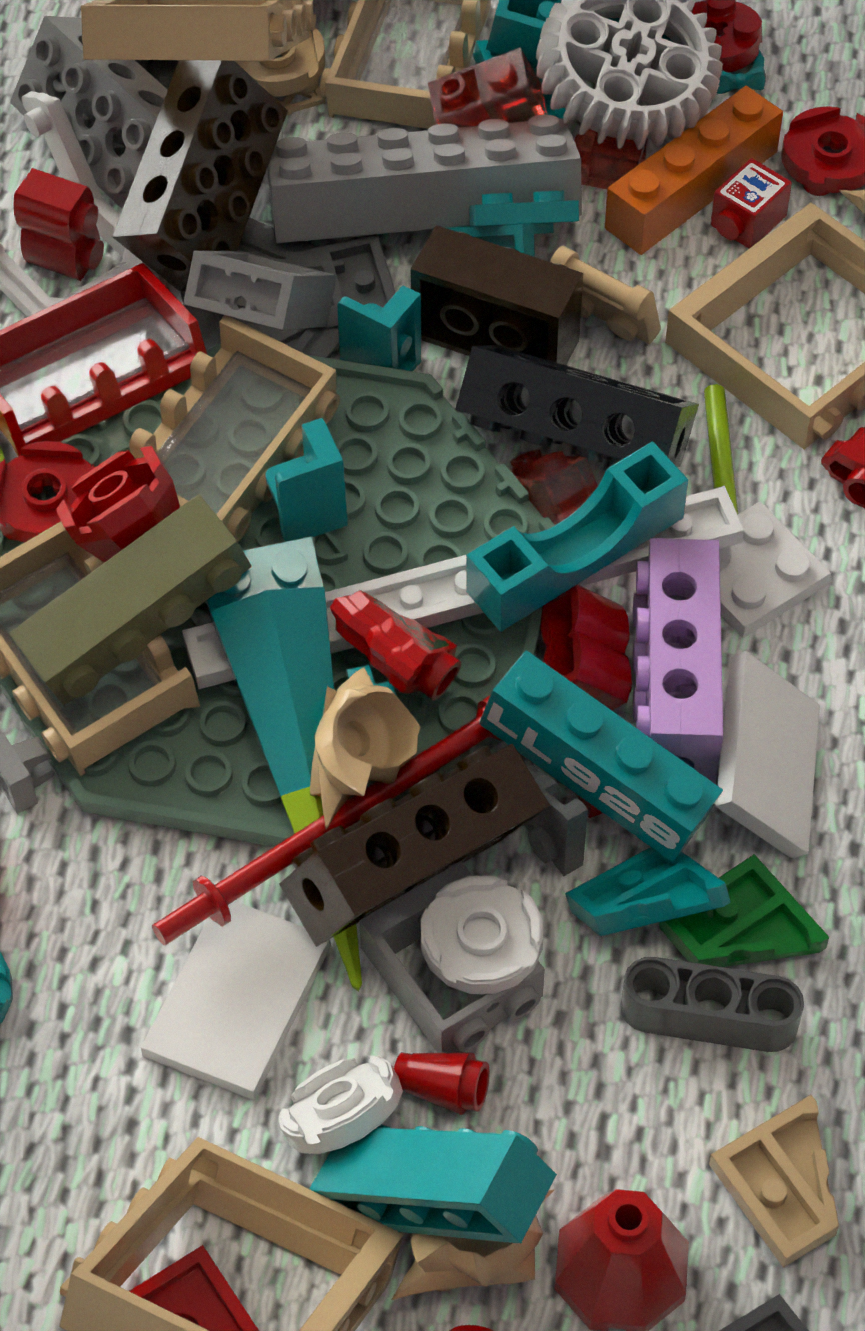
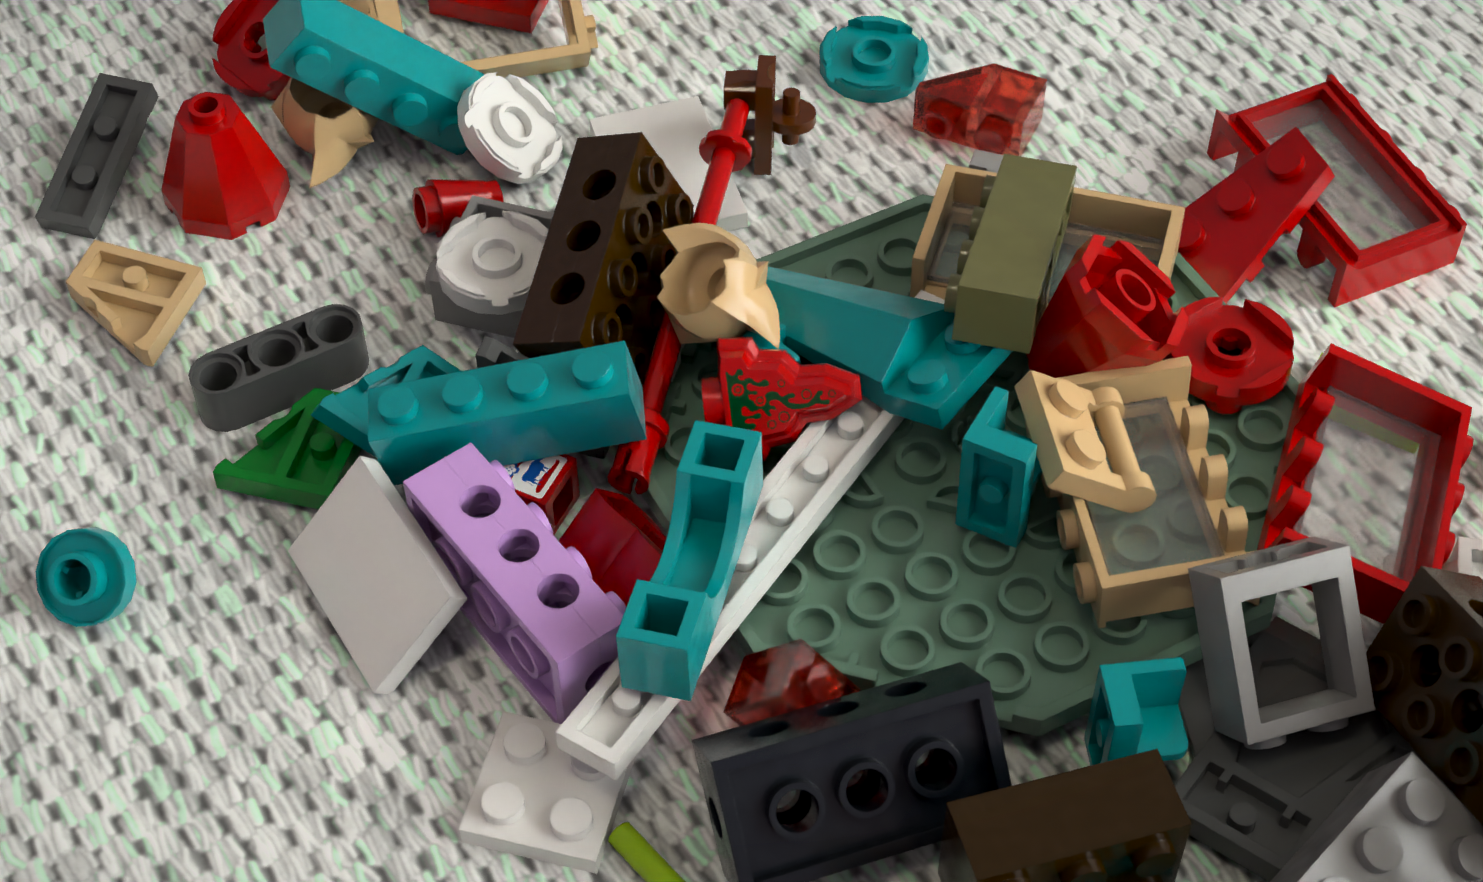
camera: 140 degrees right, 5 degrees down
(128, 944) = (784, 116): none -> reddish brown hips
(241, 457) = (1068, 448): none -> tan plate

